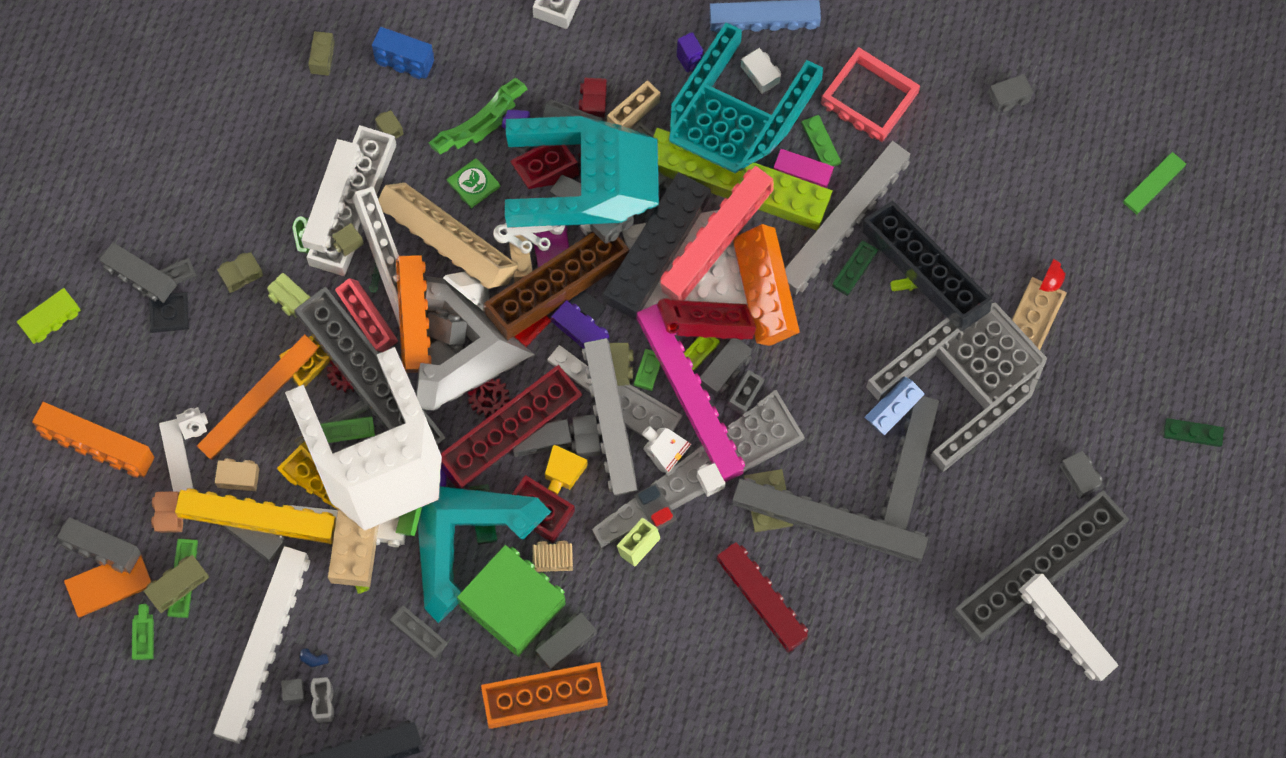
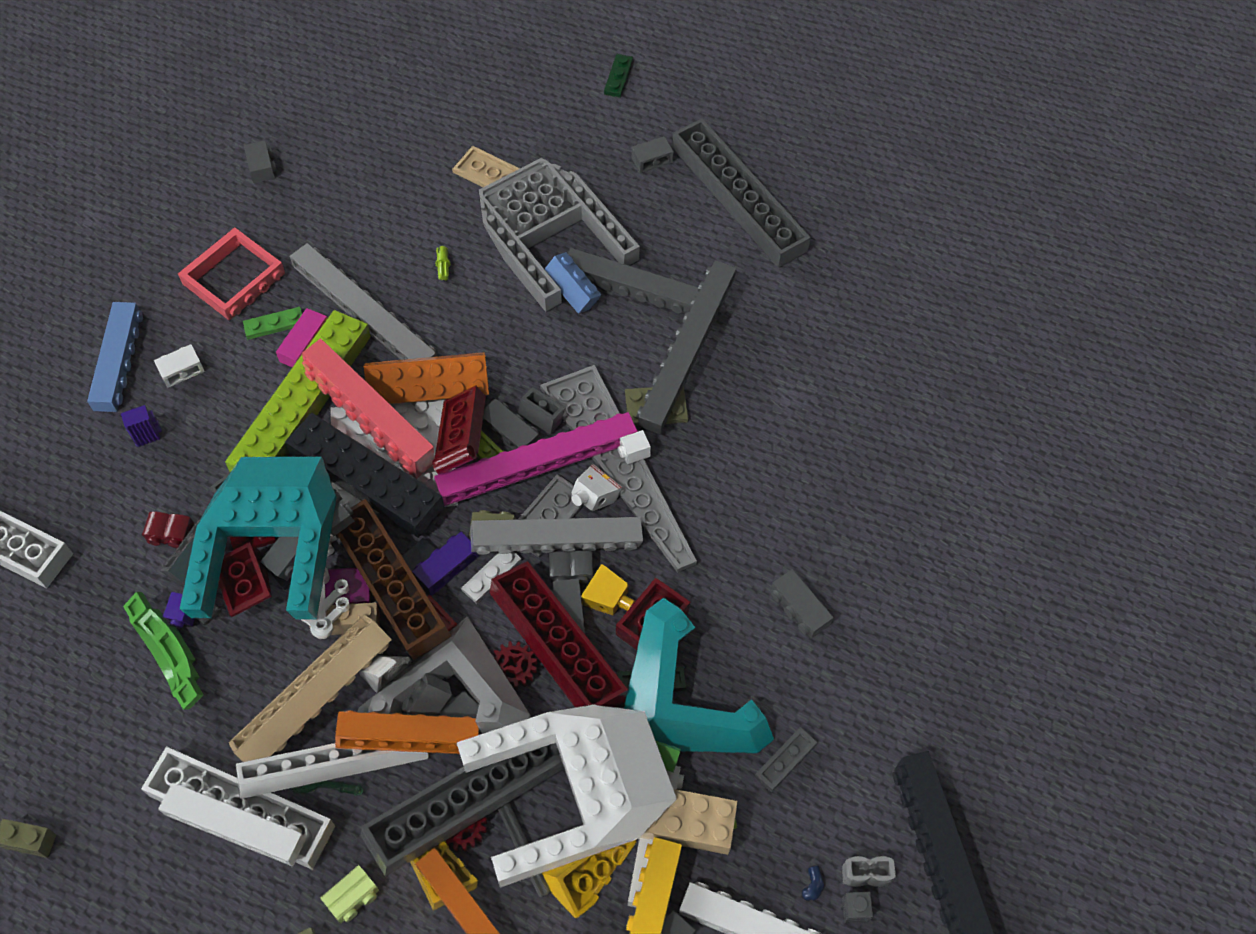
camera: 85 degrees left, 10 degrees down
(298, 229) = (272, 873): bright green plate -> none
(347, 240) = (296, 806): olive brick -> none
(348, 429) = (535, 819): bright green plate -> none
(366, 315) = (391, 796): coral brick -> none
(388, 124) = (144, 758): olive brick -> none
(403, 53) = (54, 733): blue brick -> none
(473, 183) = (244, 667): slope -> none
(512, 600) = (757, 650): bright green brick -> none
(544, 695) = (862, 629): orange brick -> none
(552, 556) = (706, 610): tan brick -> none
(635, 106) = (190, 484): tan brick -> none
(638, 542) = (696, 522): yellowish green brick -> none
(647, 371) = (503, 501): bright green plate -> none
(655, 506) = (657, 504): piece -> none
(728, 128) = (237, 398): teal wedge -> none
(762, 596) = (757, 417): dark red brick -> none
(854, 268) = (418, 306): dark green plate -> none
(927, 266) = (432, 237): black brick -> none
(1054, 277) = (455, 152): red brick -> none
(1068, 627) = (799, 174): white brick -> none
(1154, 183) = (375, 71): bright green tile -> none

